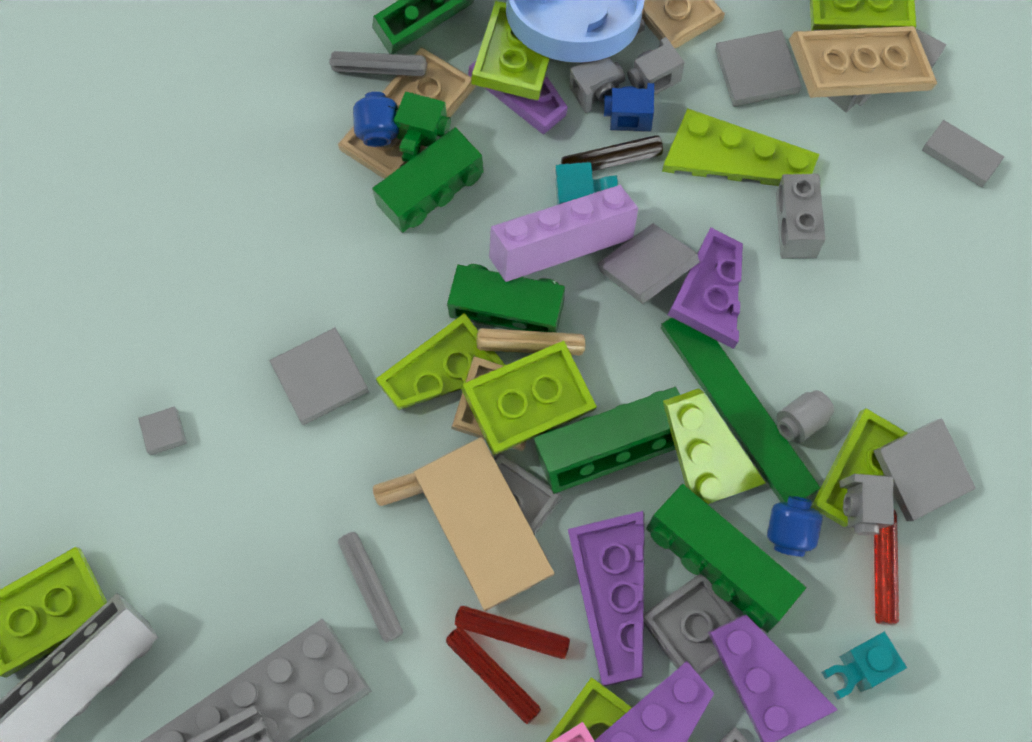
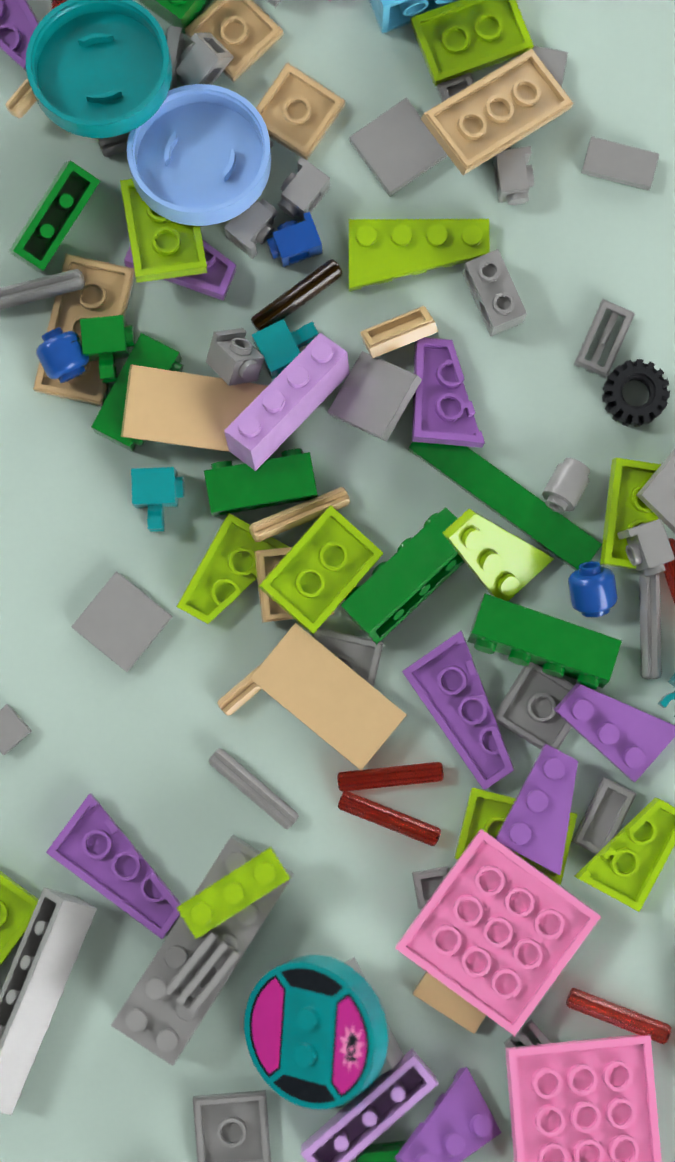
camera: 25 degrees left, 15 degrees up
(196, 604) = (109, 862): none -> medium lavender wing
(296, 674) = (233, 892): none -> lime plate
(405, 269) = (155, 490): none -> teal brick
(459, 201) = (183, 407): none -> tan tile
(531, 179) = (234, 357): none -> light grey brick
(694, 217) = (398, 332): none -> tan tile
(841, 590) = (650, 626): none -> light grey axle
(857, 123) = (513, 175): none -> light grey brick
(872, 319) = (592, 366): none -> light grey tile
(916, 340) = (635, 414): none -> black tyre

